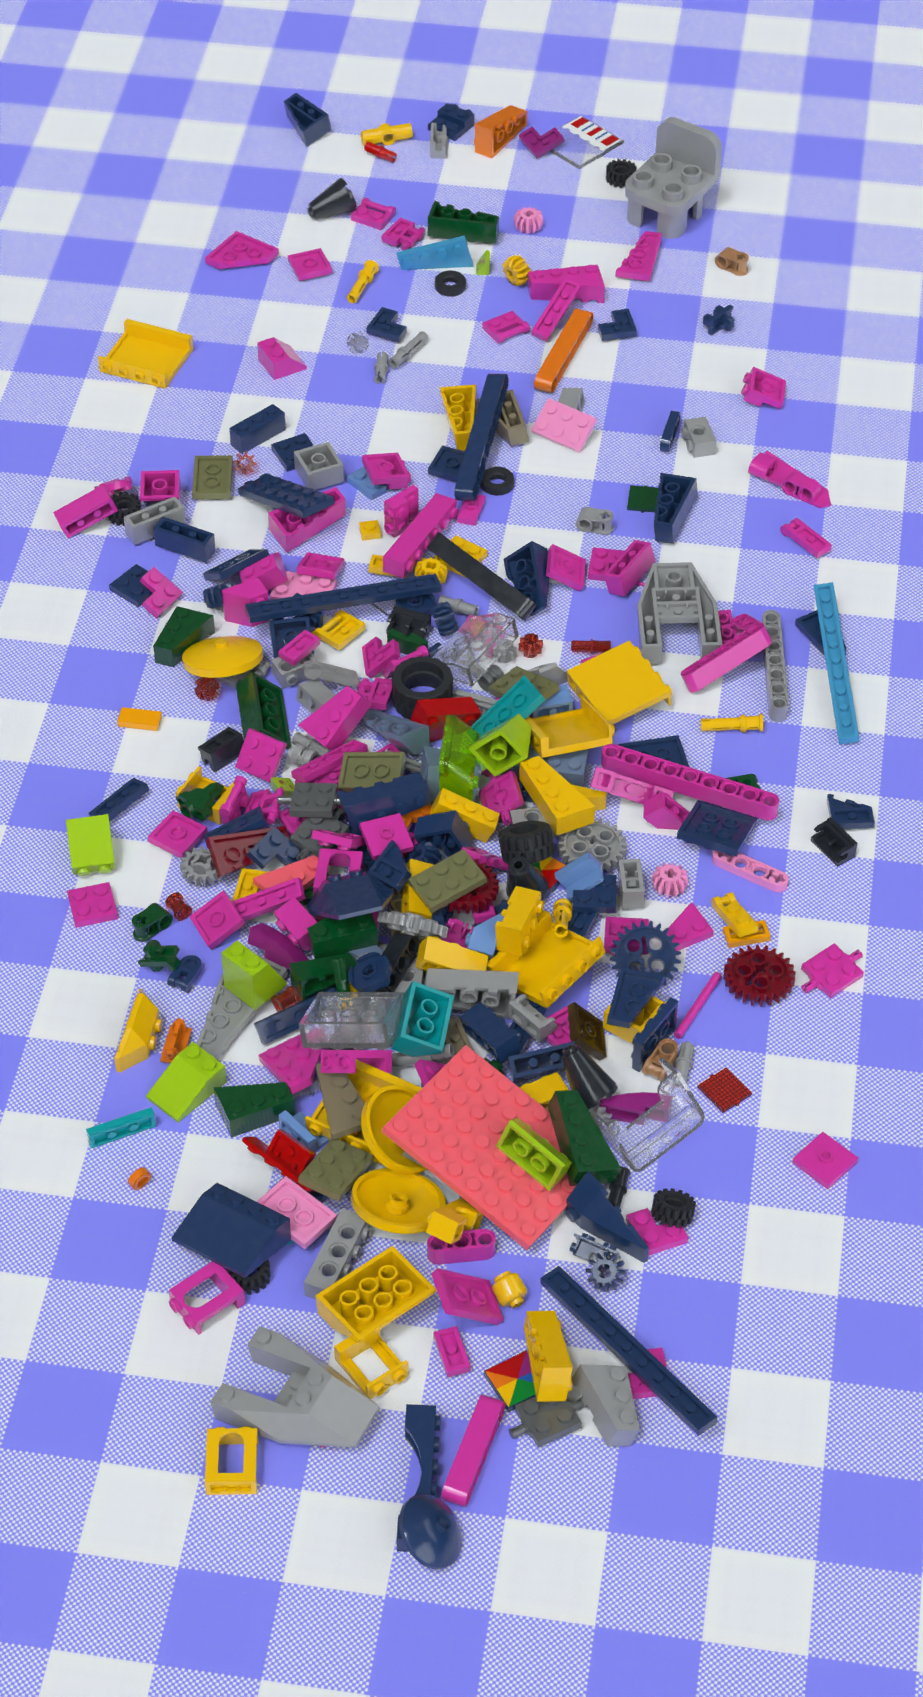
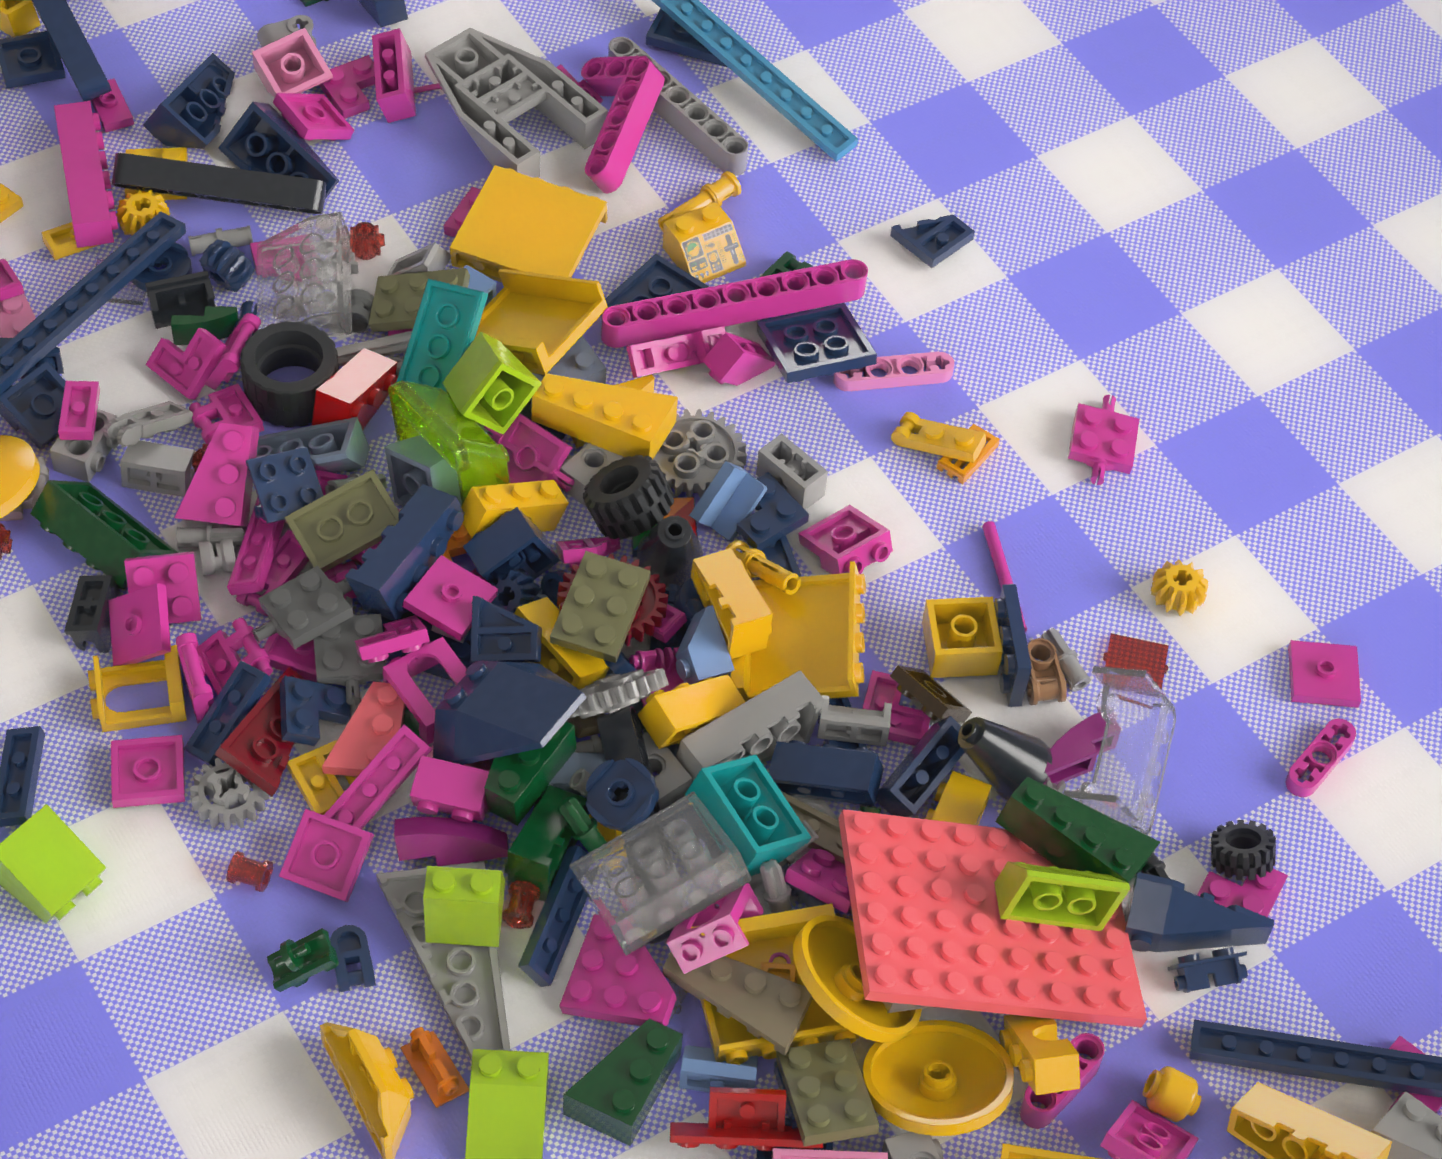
camera: 45 degrees left, 5 degrees up
(92, 904) = (121, 949): dark pink plate -> none
(150, 921) = (233, 920): dark green piece -> none
(200, 801) = (140, 705): dark green rock -> none
(232, 763) = (139, 625): none -> dark pink plate
(284, 783) = (223, 613): lime slope -> none
(341, 634) = (103, 356): yellow plate -> none
(359, 734) = (283, 483): none -> dark blue hinge
(401, 510) = (30, 155): dark pink plate -> none
(407, 1067) = (776, 890): none -> light grey axle
(497, 489) = (113, 38): black tyre -> none
(509, 531) = (195, 108): none -> dark blue wedge
(579, 533) = (291, 64): none -> bright pink slope
(591, 646) = (438, 200): clear red axle -> none
(598, 1274) = (1267, 993): dark blue gear -> none
(632, 995) = (954, 614): dark blue wing -> none
(665, 954) = (923, 536): dark blue gear -> none
(670, 880) = (825, 439): bright pink gear -> none
(689, 928) = (900, 488): dark pink wing -> none
(710, 745) = (703, 243): none -> yellow slope
(759, 975) = (1014, 495): dark red gear -> none
(768, 1205) = (1323, 744): none -> dark pink beam
(787, 1067) = (1179, 587): none -> yellow gear
(834, 842) = (954, 281): black hinge -> none

